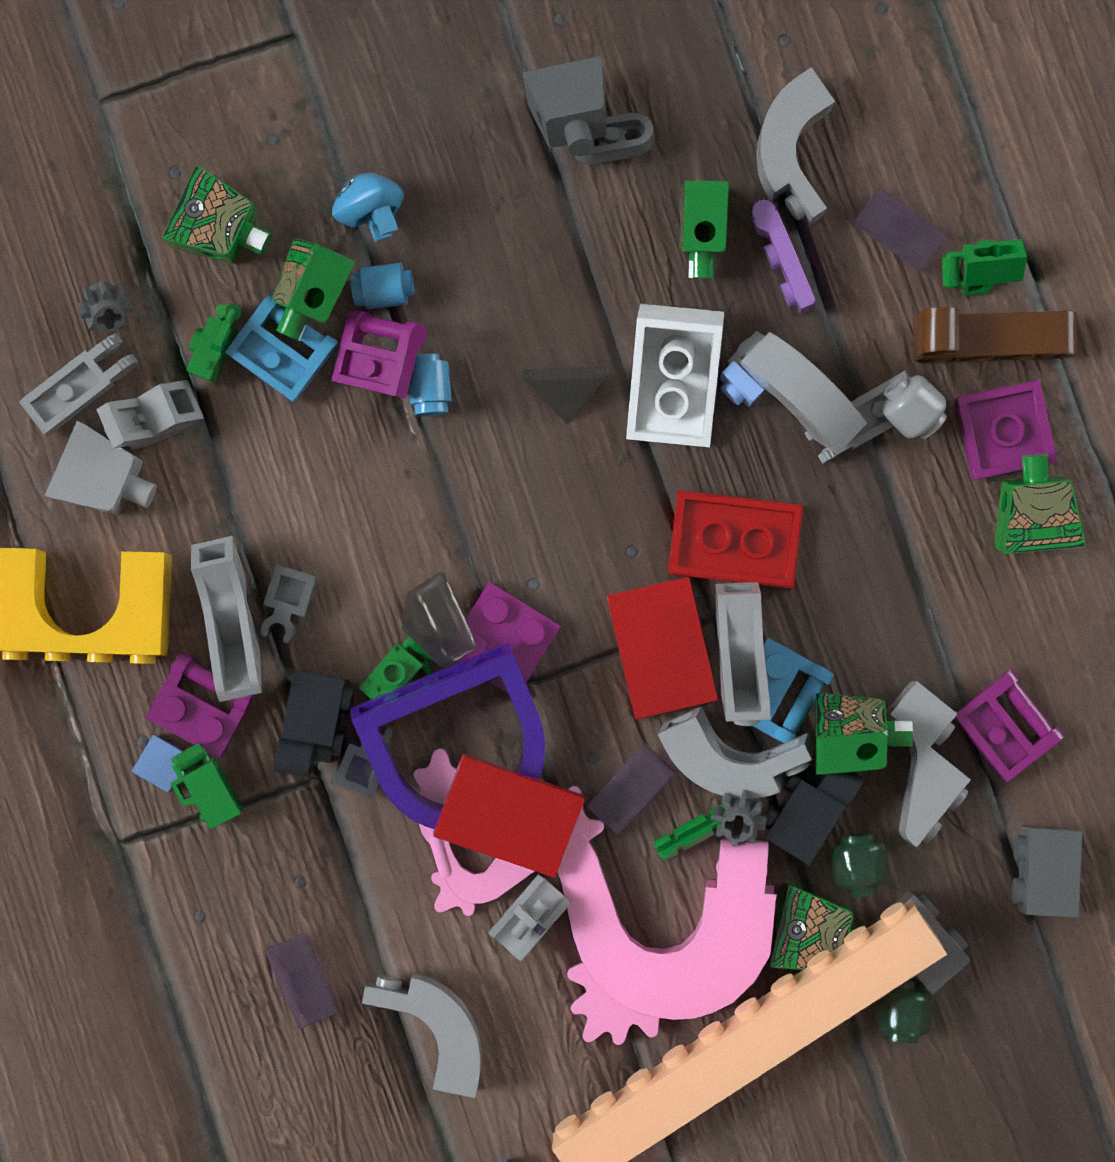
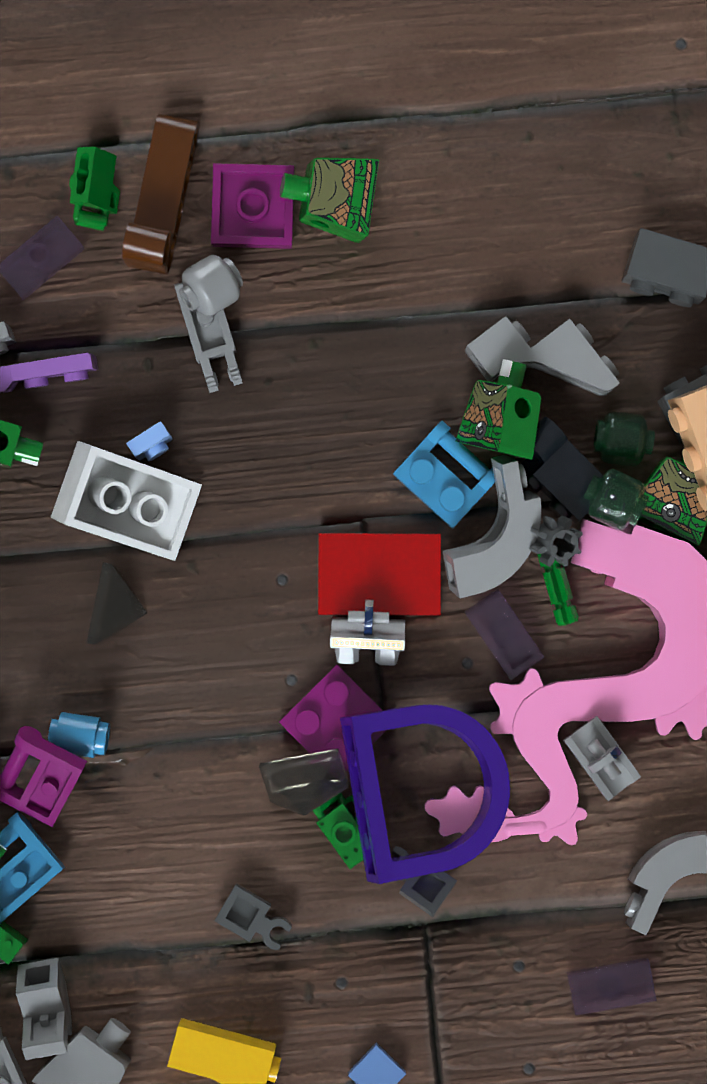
camera: 75 degrees left, 0 degrees up
(193, 716) = (340, 1032): magenta plate -> none
(207, 786) = (408, 1035): green piece -> none
(227, 617) = (259, 978): light grey arch -> none
(312, 722) = (372, 920): black hinge -> none
(508, 815) = (503, 756): red tile -> none
(601, 650) = (367, 631): none -> light grey hips
(735, 539) = (294, 481): red tile -> none
(742, 653) = (403, 501): light grey arch -> none
(796, 870) = (616, 499): none -> clear green head
(801, 389) = (168, 387): light grey arch -> none
(997, 733) = (532, 283): magenta plate -> none

